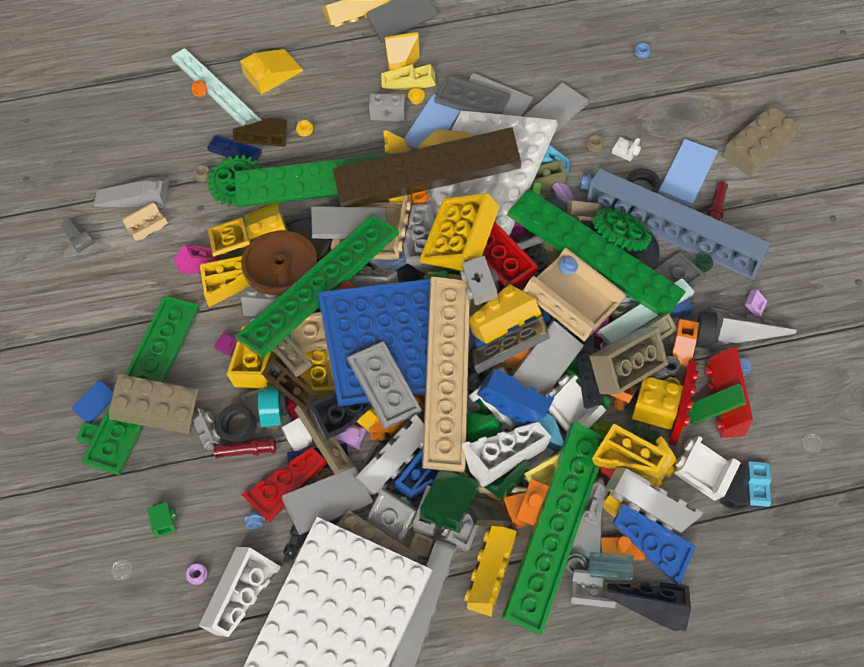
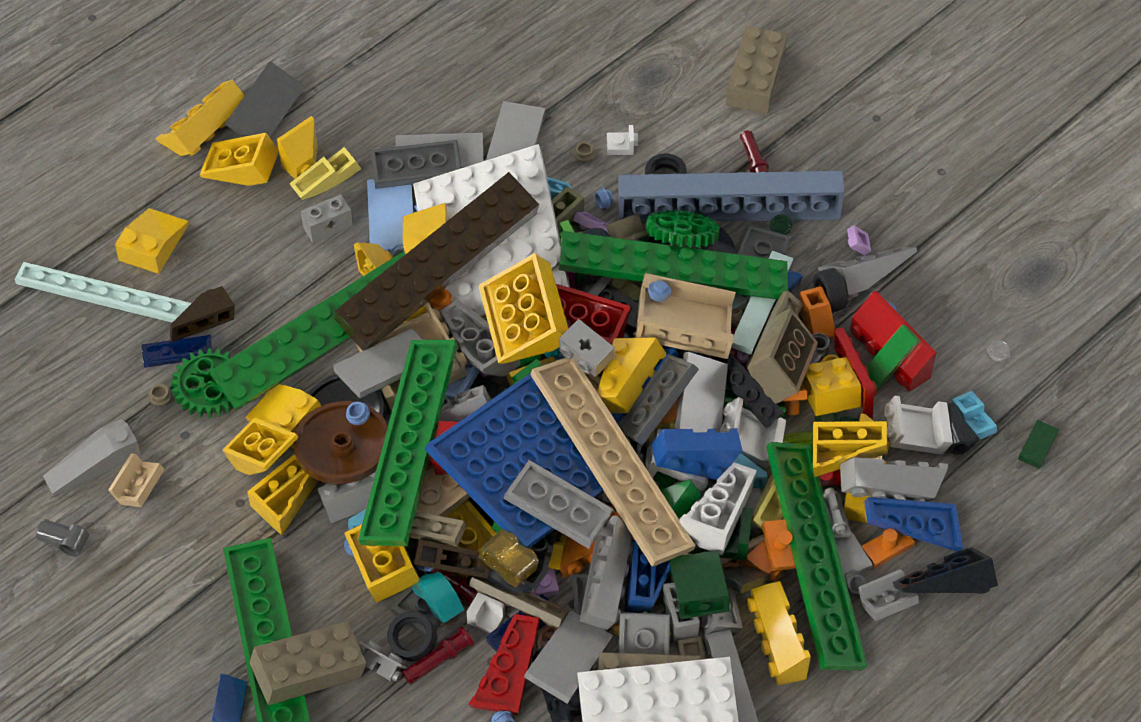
camera: 35 degrees left, 5 degrees down
(191, 257) = (228, 491): dark pink slope -> none
(199, 88) = (81, 300): orange plate -> none
(226, 344) = (333, 563): magenta plate -> none
(301, 247) = (357, 413): none -> medium blue plate
(304, 128) = (244, 287): yellow plate -> none
(320, 405) = (509, 558): none -> clear yellow brick
(361, 44) = (241, 160): none -> yellow slope
(416, 95) = (348, 190): yellow plate -> none
(610, 566) = (890, 564): clear light blue panel -> none
(642, 50) = (566, 26): medium blue plate -> none
(688, 172) = (702, 137): light blue tile -> none
(797, 534) = (1038, 444): none -> dark green tile

